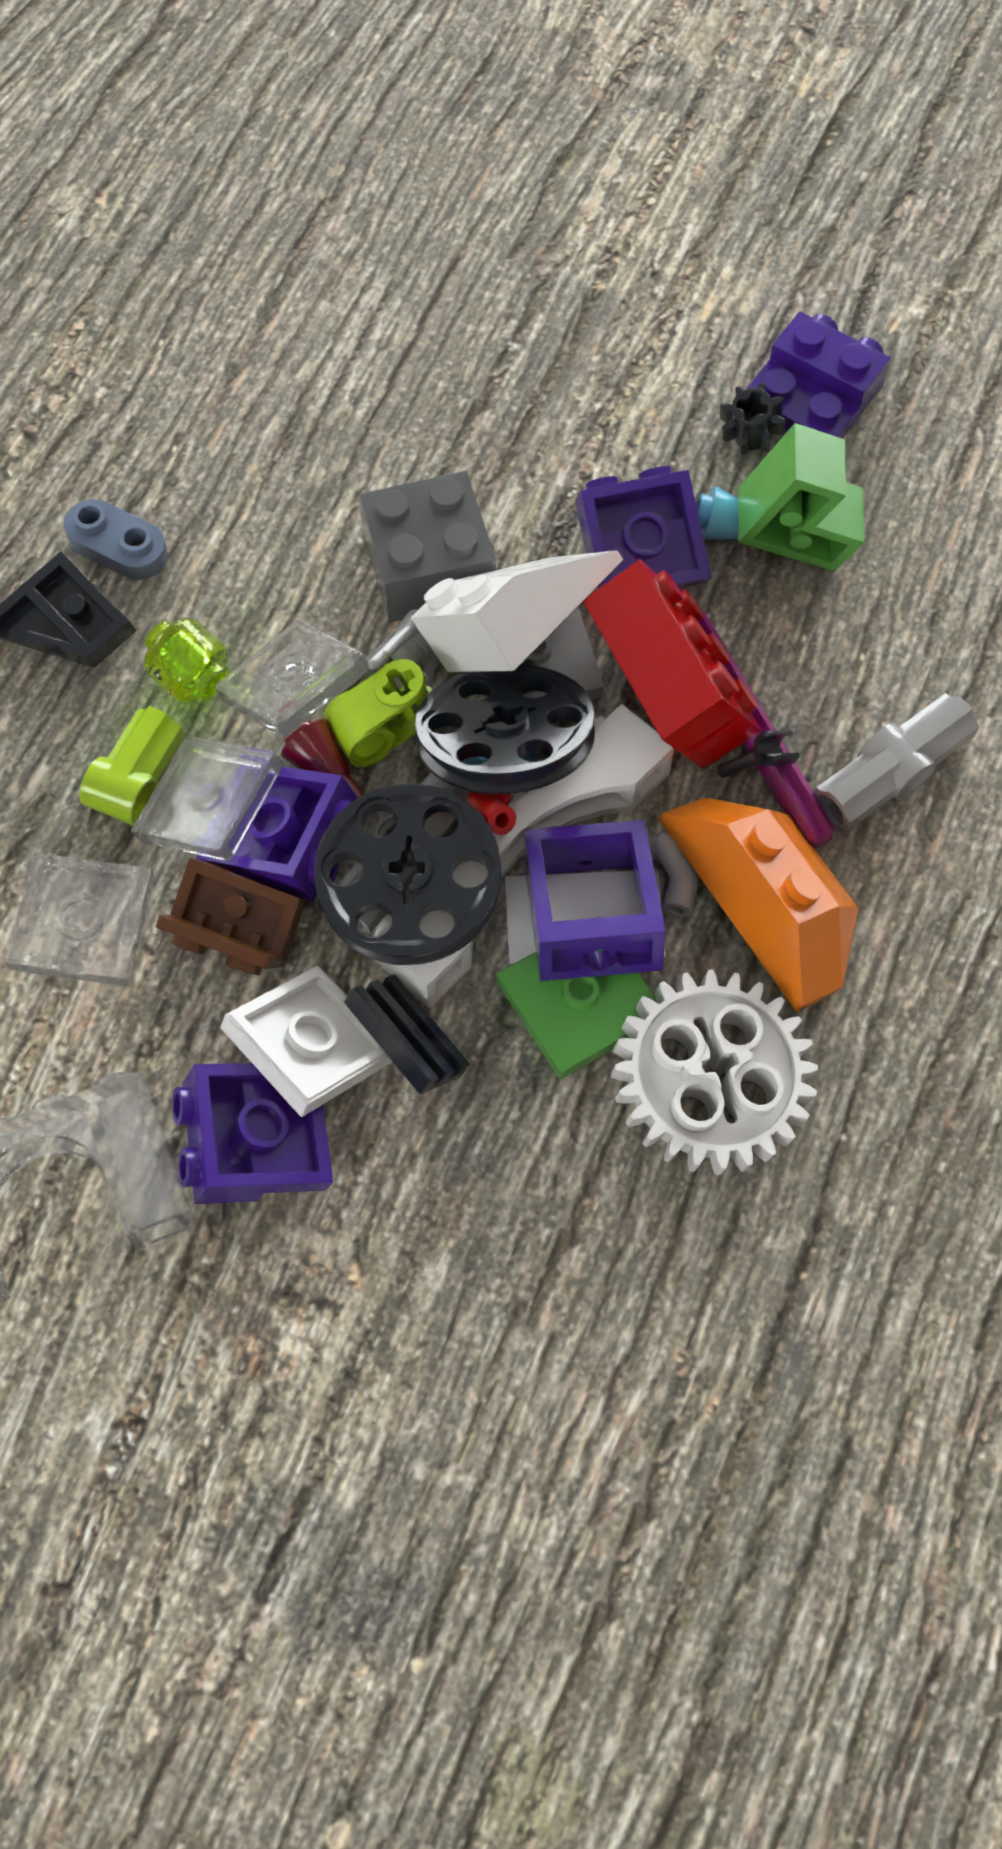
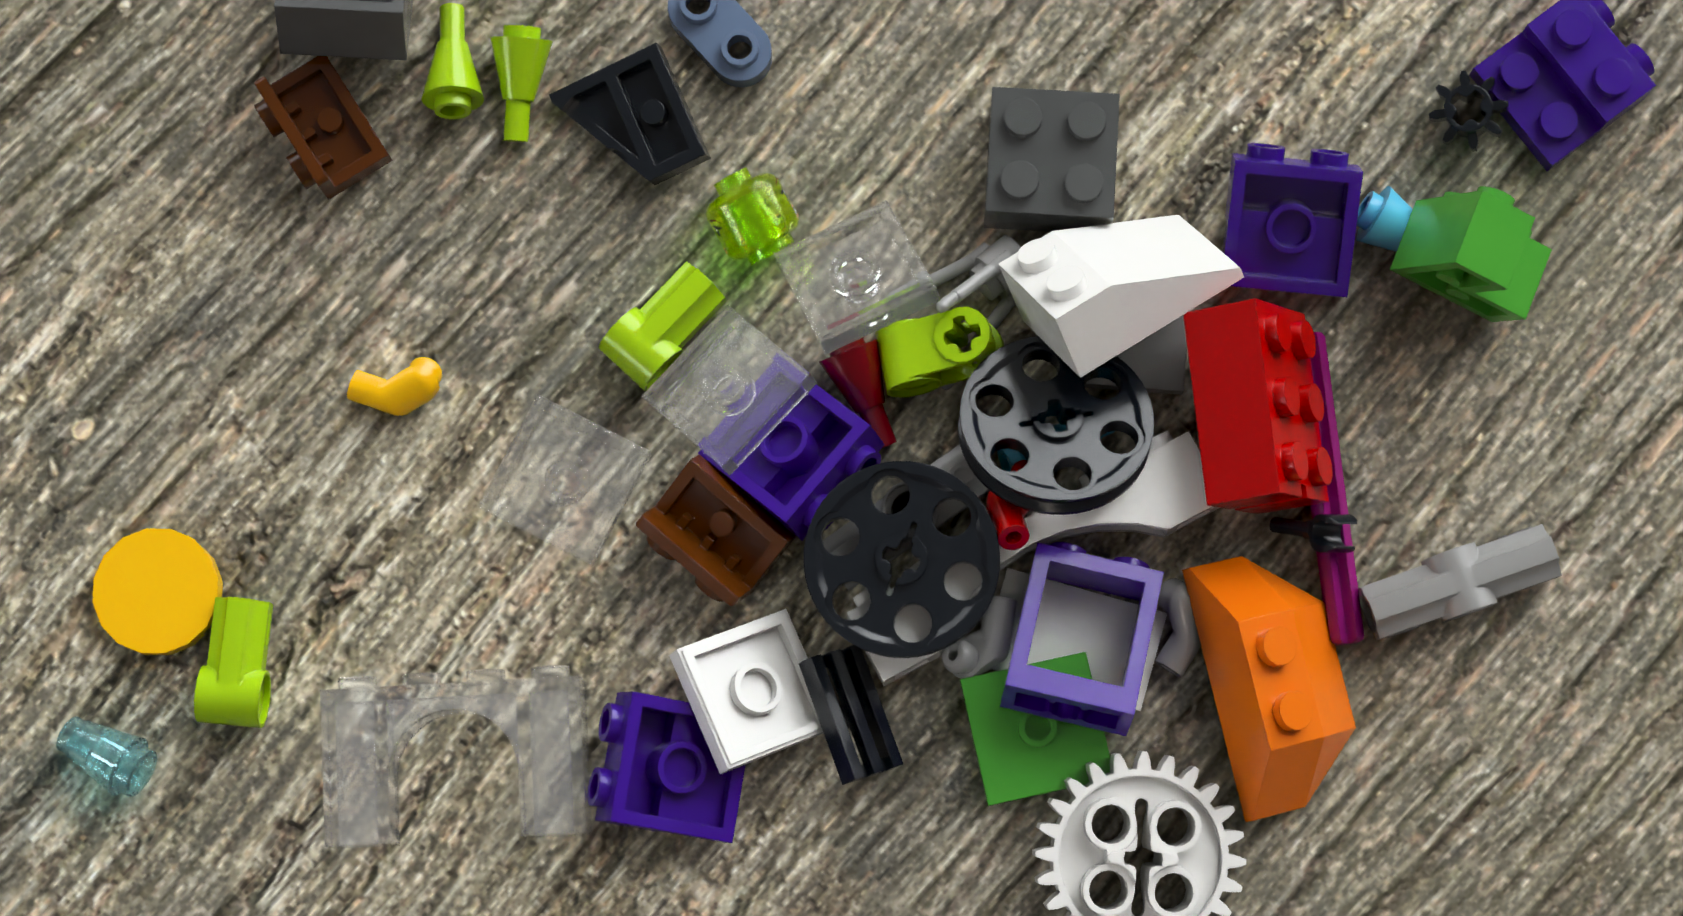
camera: 25 degrees right, 15 degrees up
(511, 938) = (985, 646): none -> light grey arm

